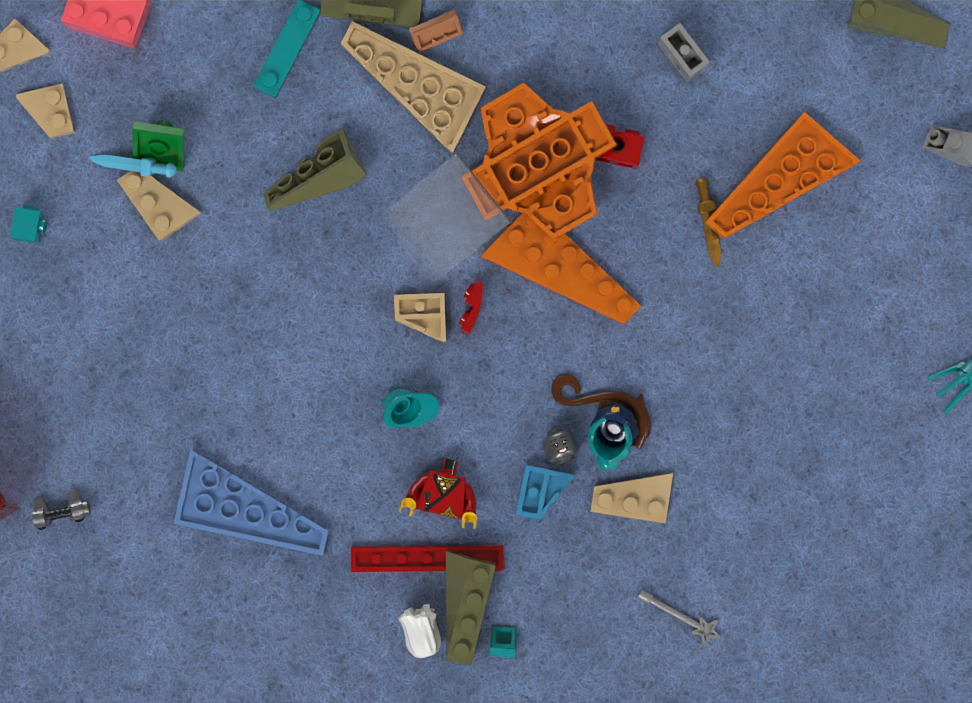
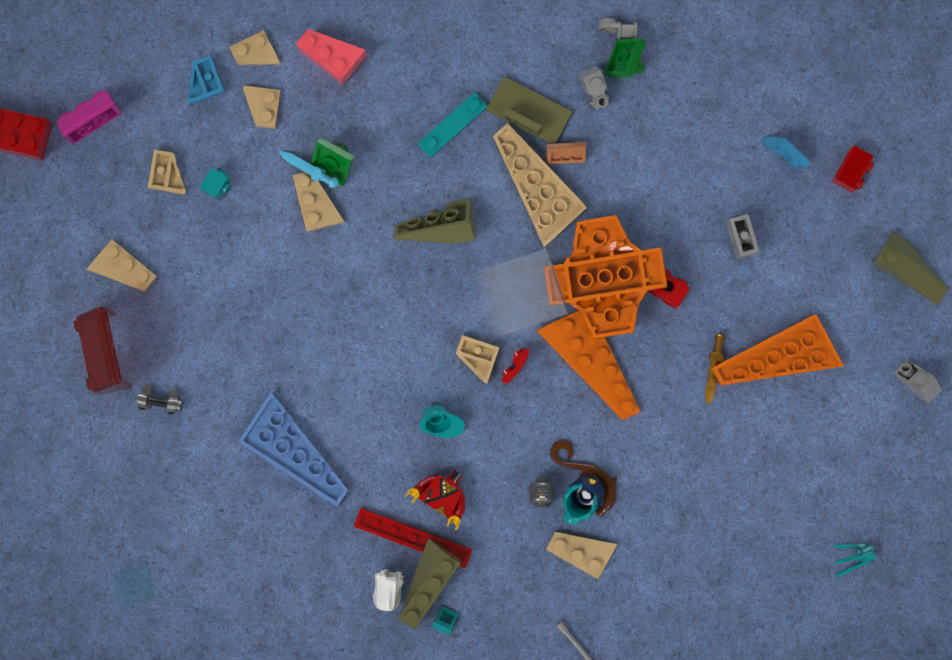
camera: 25 degrees right, 0 degrees up
(540, 490) = (514, 520): dark azure wing -> none

